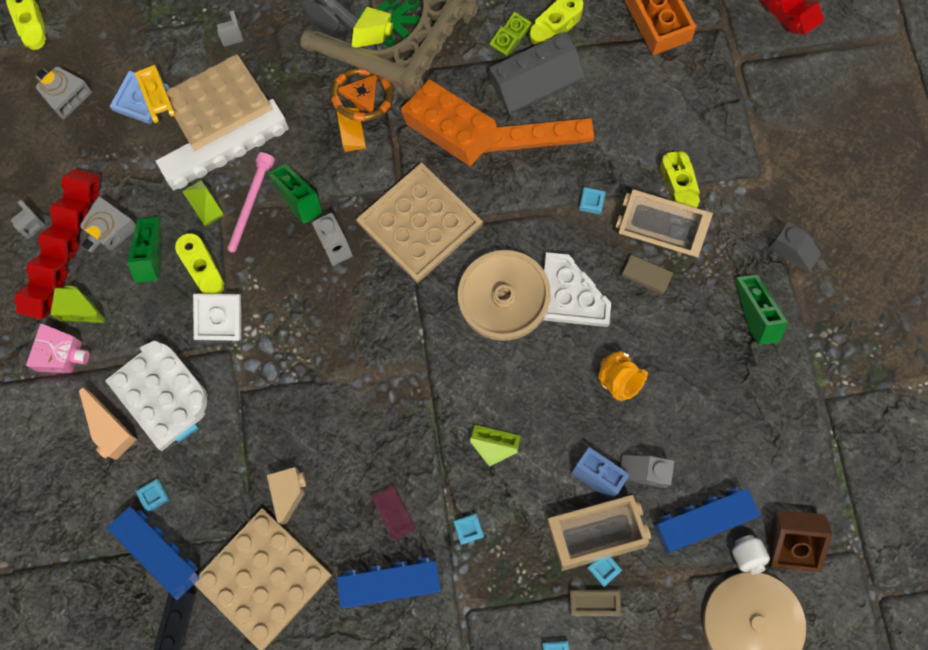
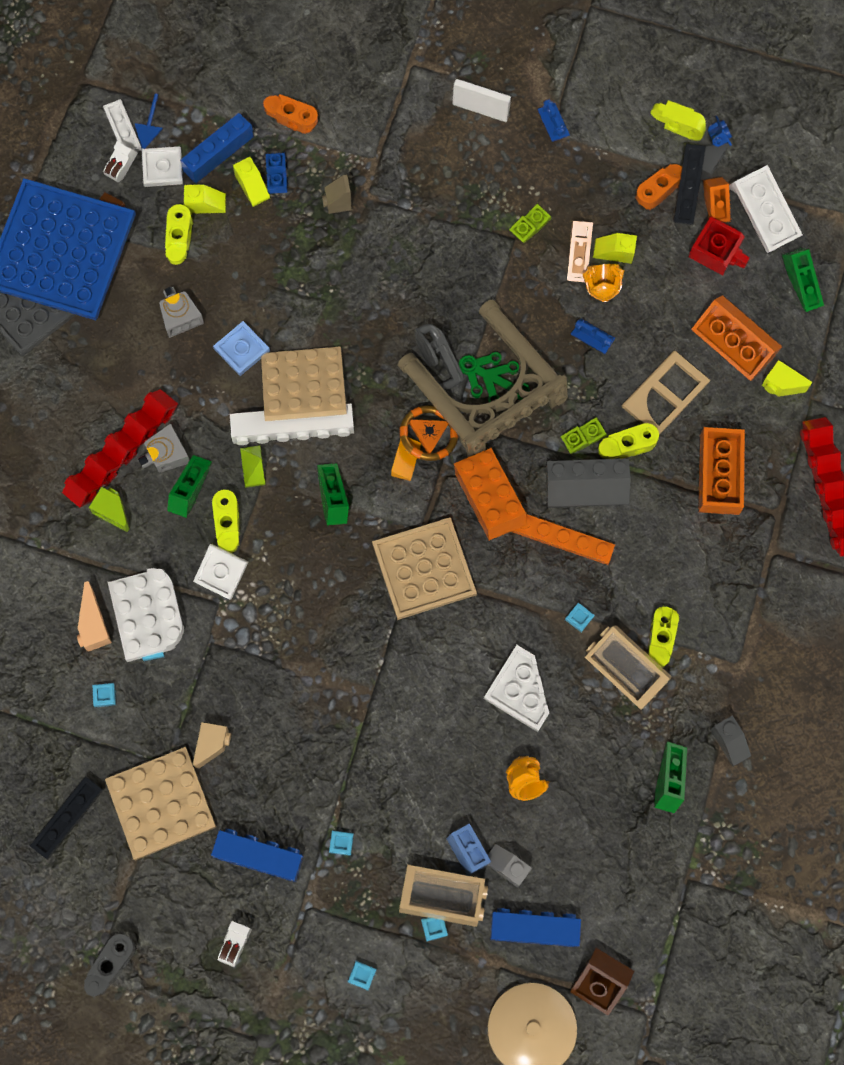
camera: 20 degrees right, 0 degrees up
(27, 221) = (102, 415): light grey panel -> none
(55, 351) = (79, 539): bright pink torso -> none
(153, 553) = (86, 742): blue brick -> none
(154, 92) = (255, 352): yellow hinge -> none
(230, 31) = (344, 322): light grey panel -> none
(264, 162) = (319, 455): bright pink piece -> none
(330, 237) = (344, 549): light grey torso -> none
(371, 28) = (464, 379): neon yellow slope -> none
(393, 513) = (287, 801): clear pink tile -> none
(494, 444) = (394, 784): lime slope -> none
(504, 295) = (463, 664): tan dish -> none
(595, 603) = (413, 950): dark tan tile -> none
(647, 274) = (593, 703): dark tan tile -> none
(750, 554) = (556, 973): white head -> none

